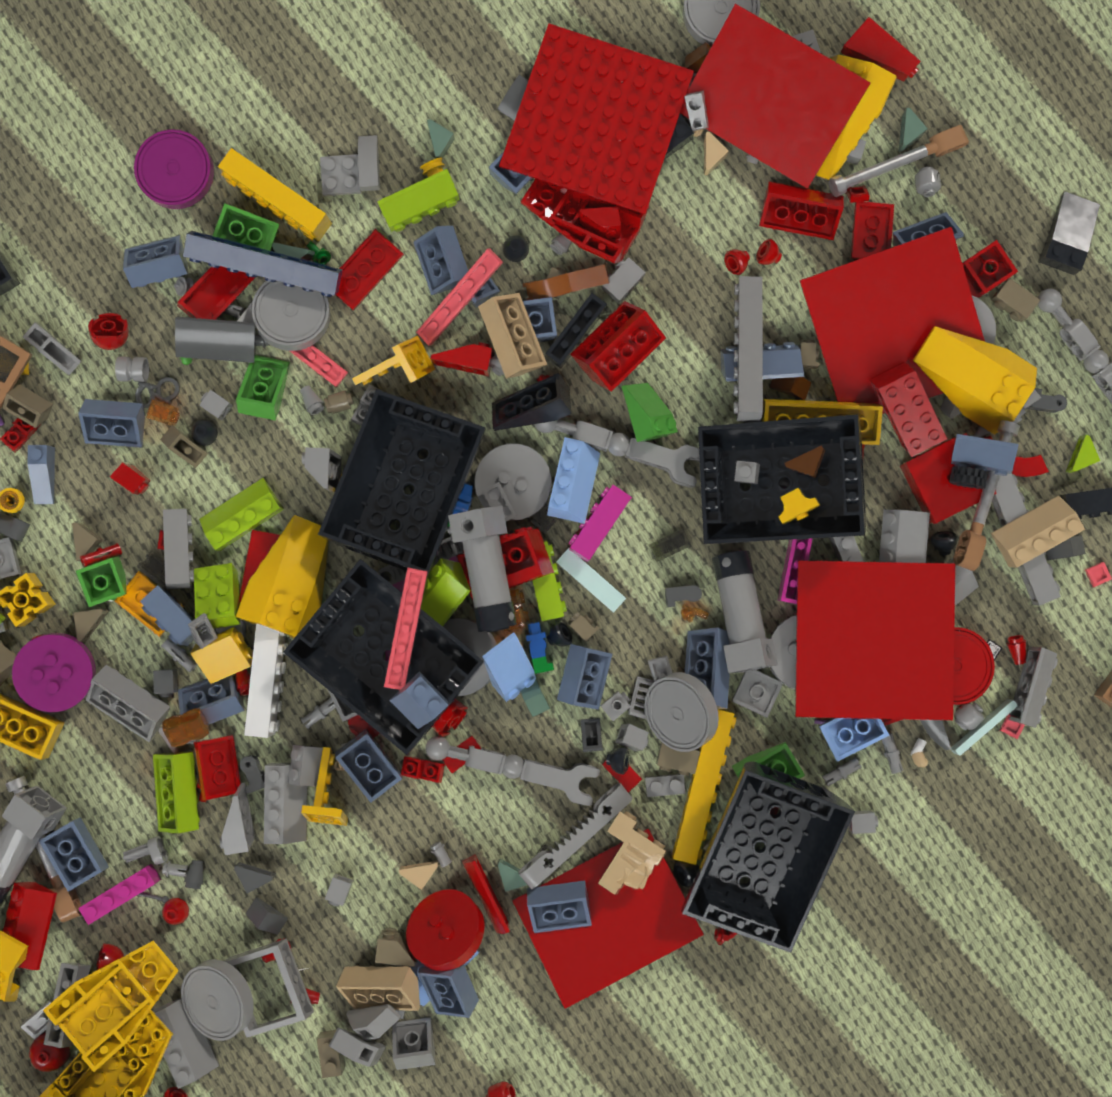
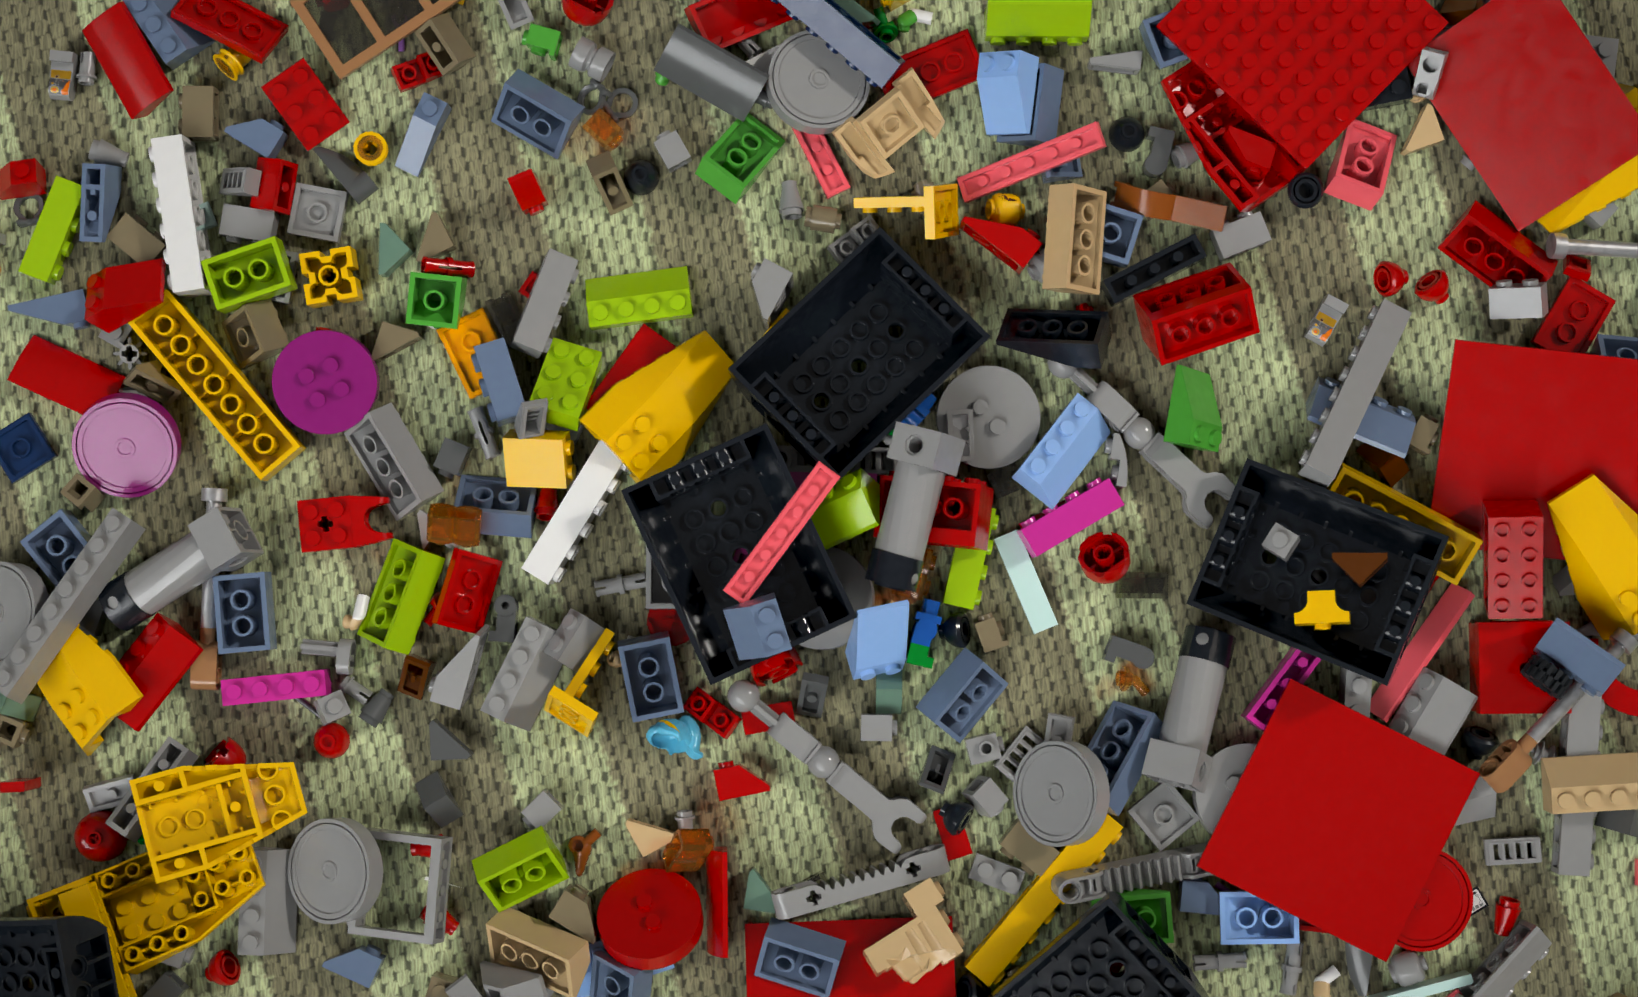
camera: 25 degrees right, 0 degrees up
(58, 562) = (392, 251): none -> sand green slope
(93, 372) = (543, 41): none -> bright green brick
(116, 760) = (349, 521): none -> red brick
(152, 813) = (359, 613): none -> white arm
(163, 889) = (332, 707): none -> light grey brick
(210, 840) = (415, 675): none -> reddish brown slope
(264, 1055) = (357, 964): none -> sand blue slope
(334, 237) = (912, 16): none -> arm
(342, 938) = (520, 869): none -> lime brick
(353, 317) = (889, 125): none -> tan piece
(378, 903) = (582, 848): none -> dark orange animal
(406, 796) = (677, 736): none -> medium azure hair
(420, 257) = (1007, 90): none -> light blue slope
(449, 870) = (687, 850): none -> clear orange brick
(457, 337) = (1005, 209): none -> yellow head
(461, 807) = (737, 781): none -> red slope
(484, 725) = (812, 695): none -> dark grey slope
(487, 203) = (1120, 63): none -> light grey slope
(538, 725) = (877, 727): none -> light grey brick
(543, 250) = (1159, 152): none -> dark grey leg
(610, 464) = (1116, 452): none -> light grey slope
(635, 539) = (1104, 557): none -> red cylinder
(652, 229) = (1305, 190): none -> black brick
(681, 194) = (1361, 165): none -> coral slope
(707, 309) = (1325, 319): none -> light grey leg
(763, 735) = (1129, 873): none -> light grey gear
(805, 735) = (1197, 897): none -> sand blue slope
(829, 234) = (1518, 300): none -> light grey brick
(876, 499) = (1421, 650): none -> coral tile
(989, 528) = (1541, 751): none -> light grey wheel
(1004, 609) = (1535, 848): none -> light grey slope

